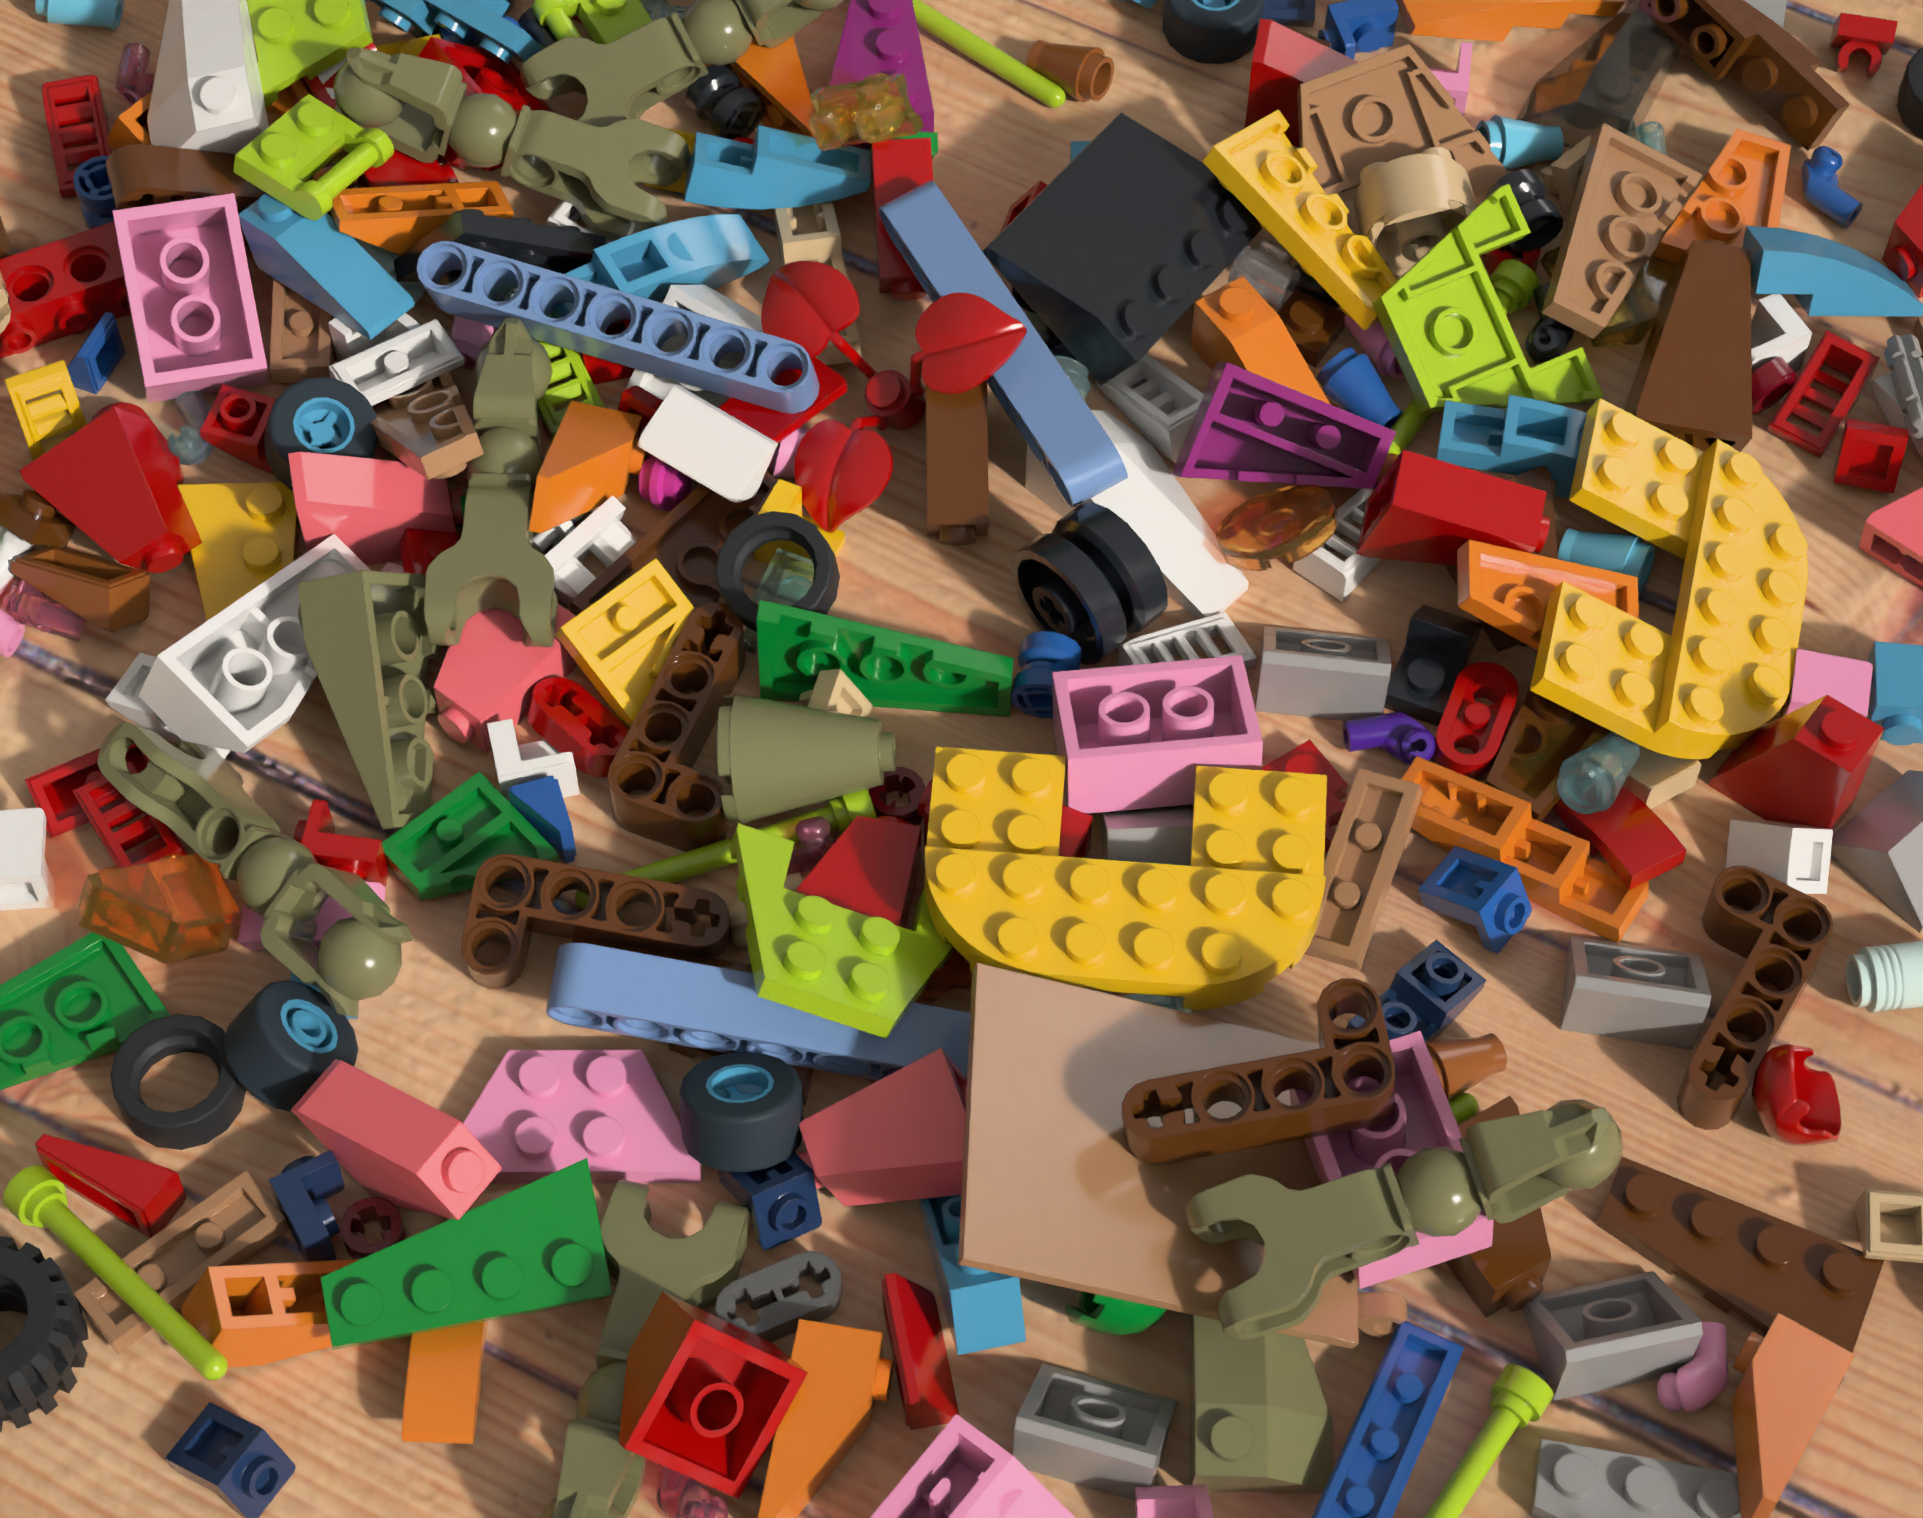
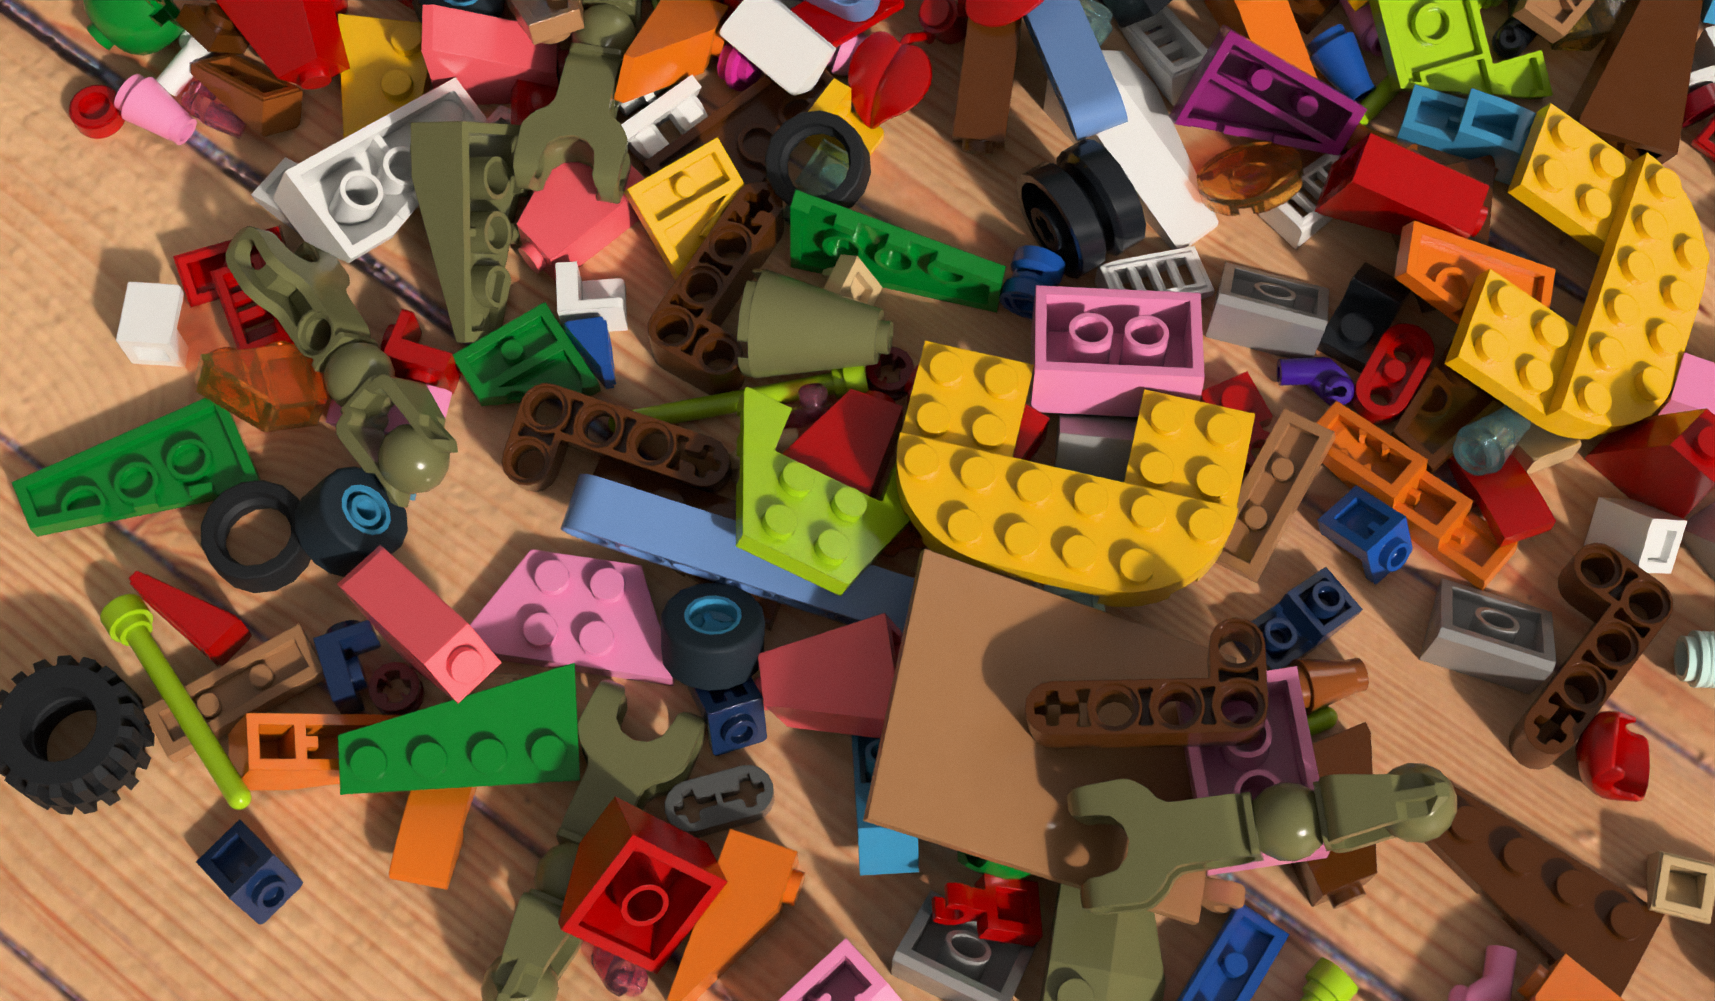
camera: 10 degrees right, 10 degrees up
(576, 724) = (629, 275): red beam -> none
(918, 1353) = (828, 867): red slope -> none
(1128, 1362) = (1001, 907): none -> red plate
(1609, 552) = (1532, 240): medium azure cone -> none
(1611, 1334) = (1417, 940): light grey slope -> none

